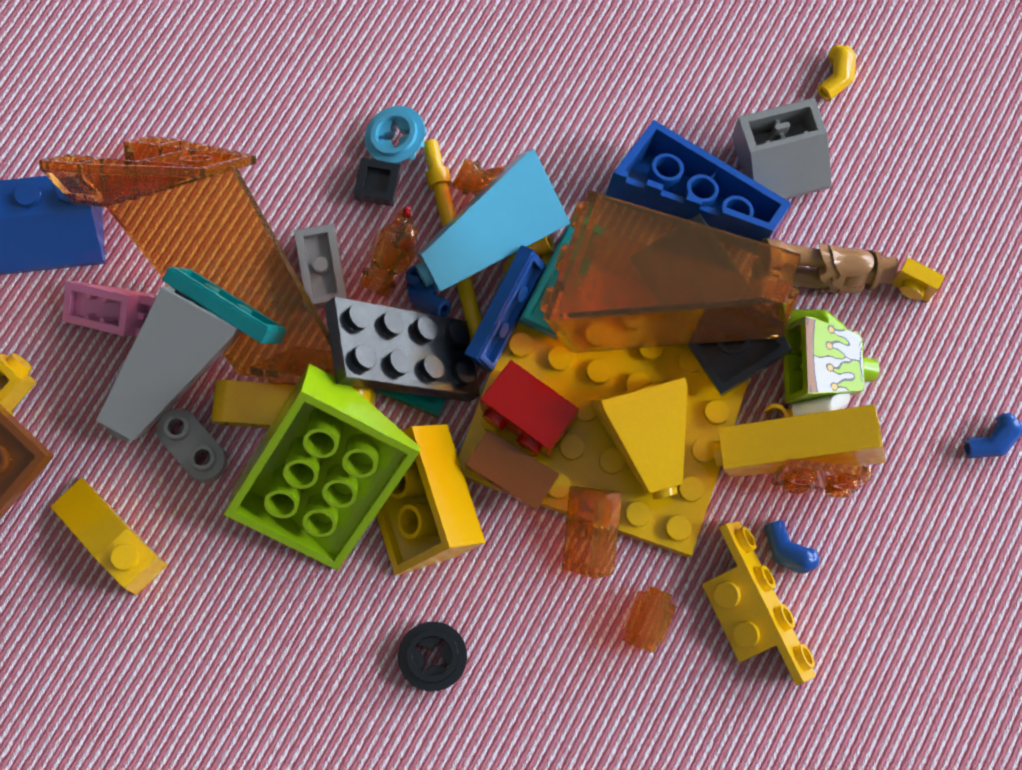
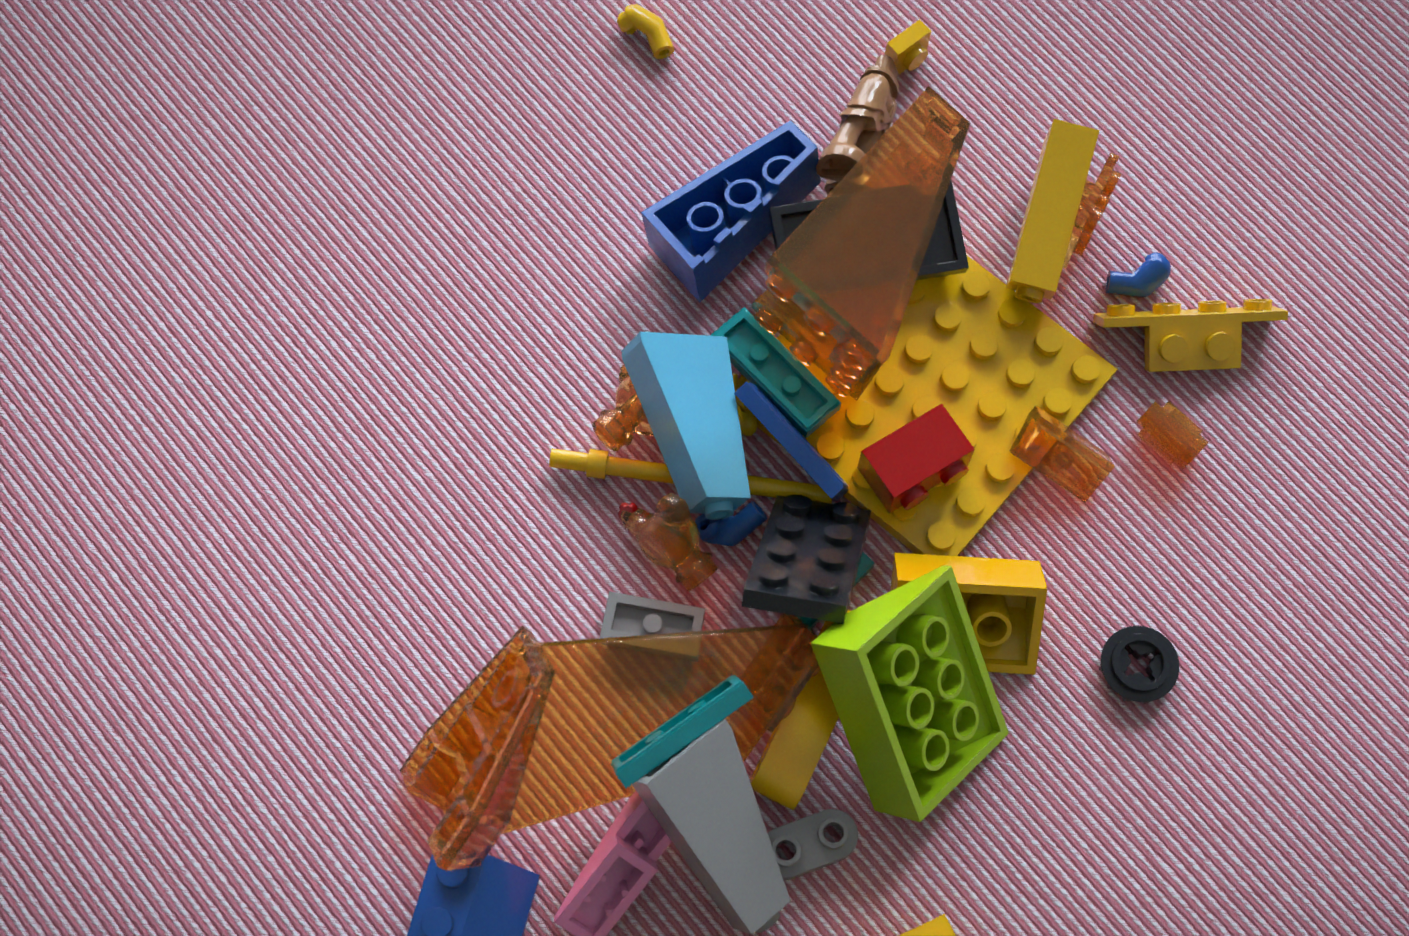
camera: 70 degrees left, 5 degrees down
(377, 182) = (575, 529): black plate -> none
(383, 128) = (519, 469): medium azure gear -> none
(512, 470) = (972, 504): dark orange tile -> none
(649, 432) = (982, 346): yellow slope -> none
(785, 148) = (718, 108): light grey slope -> none
(823, 364) = (988, 178): torso -> none
(1000, 441) = (1092, 40): blue arm -> none

